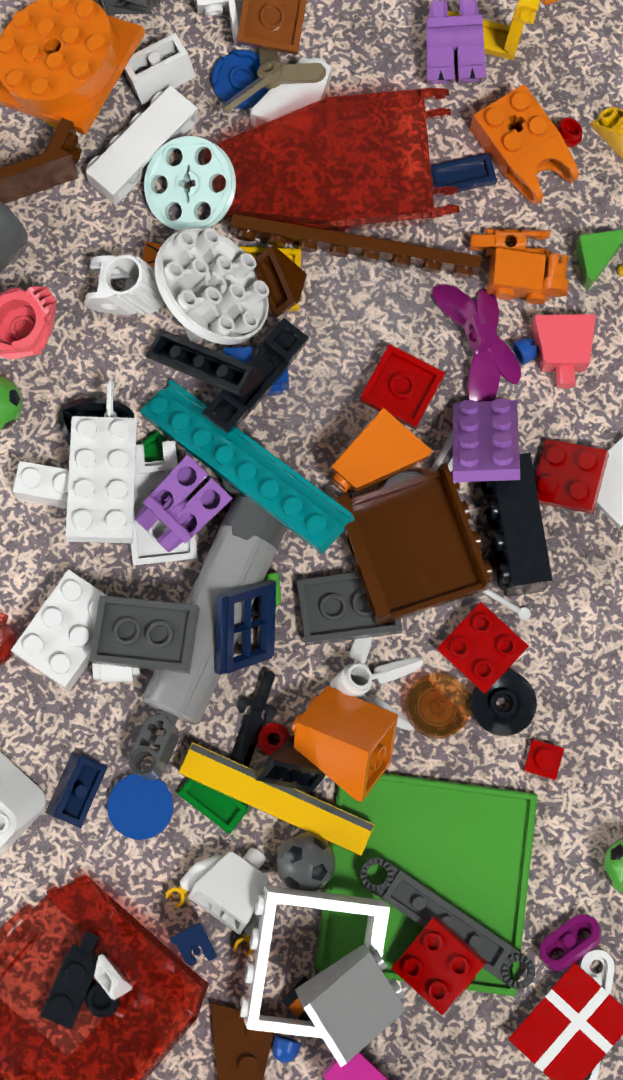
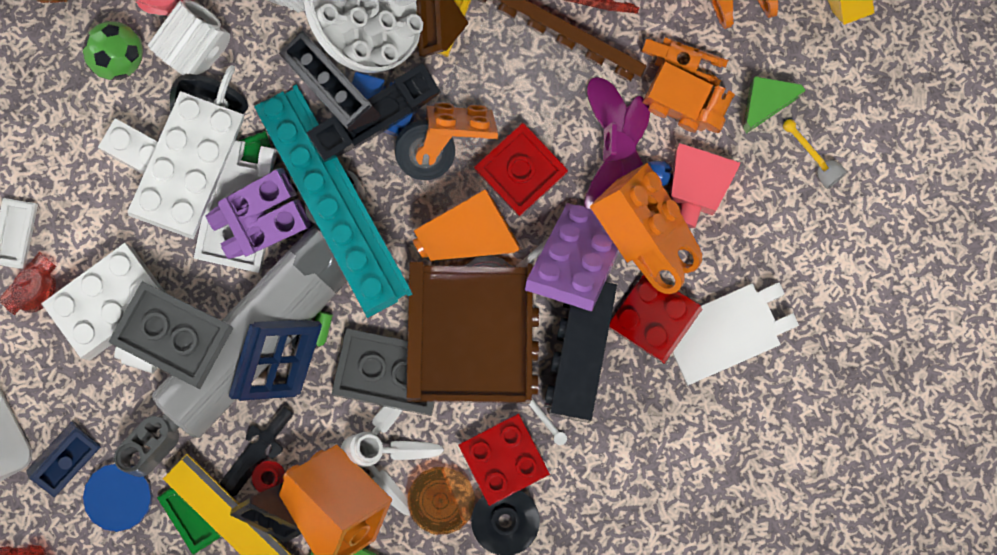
camera: 25 degrees right, 5 degrees up
(62, 367) = (188, 41): none -> white piece
(312, 393) = (427, 145): none -> plate
(535, 396) = (647, 227): none -> orange brick

